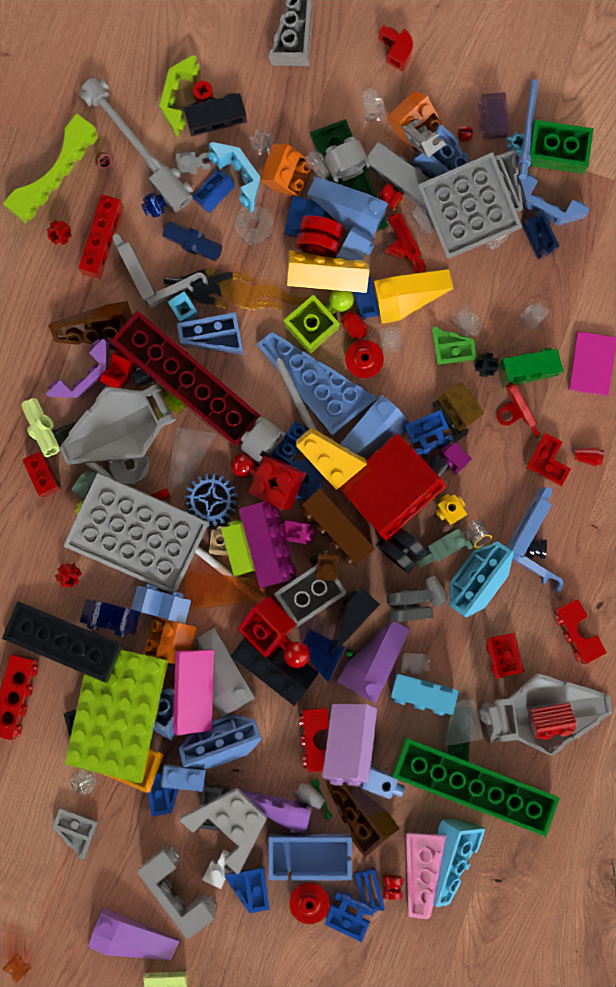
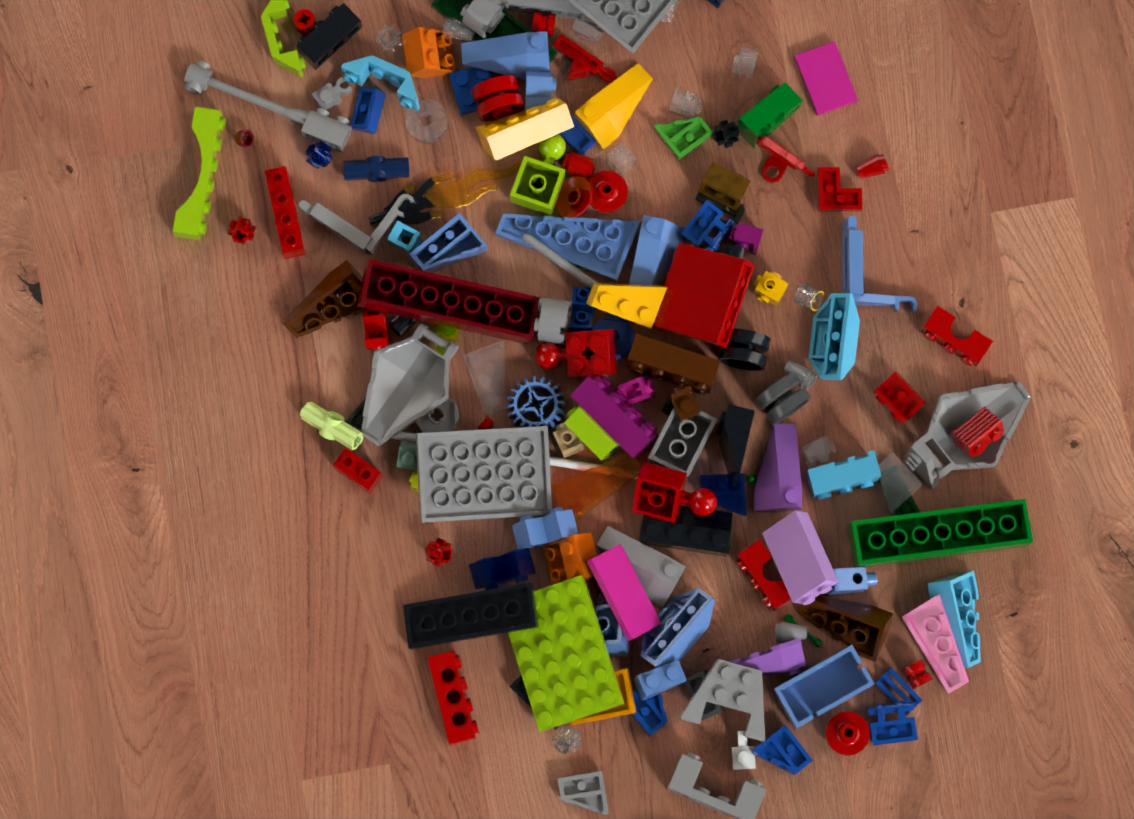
camera: 30 degrees left, 5 degrees down
(100, 353) = (349, 323): medium lavender slope -> none
(336, 349) = (574, 197): none -> red dish
(444, 547) = (785, 327): sand green piece -> none
(537, 549) = (873, 281): black wheel -> none

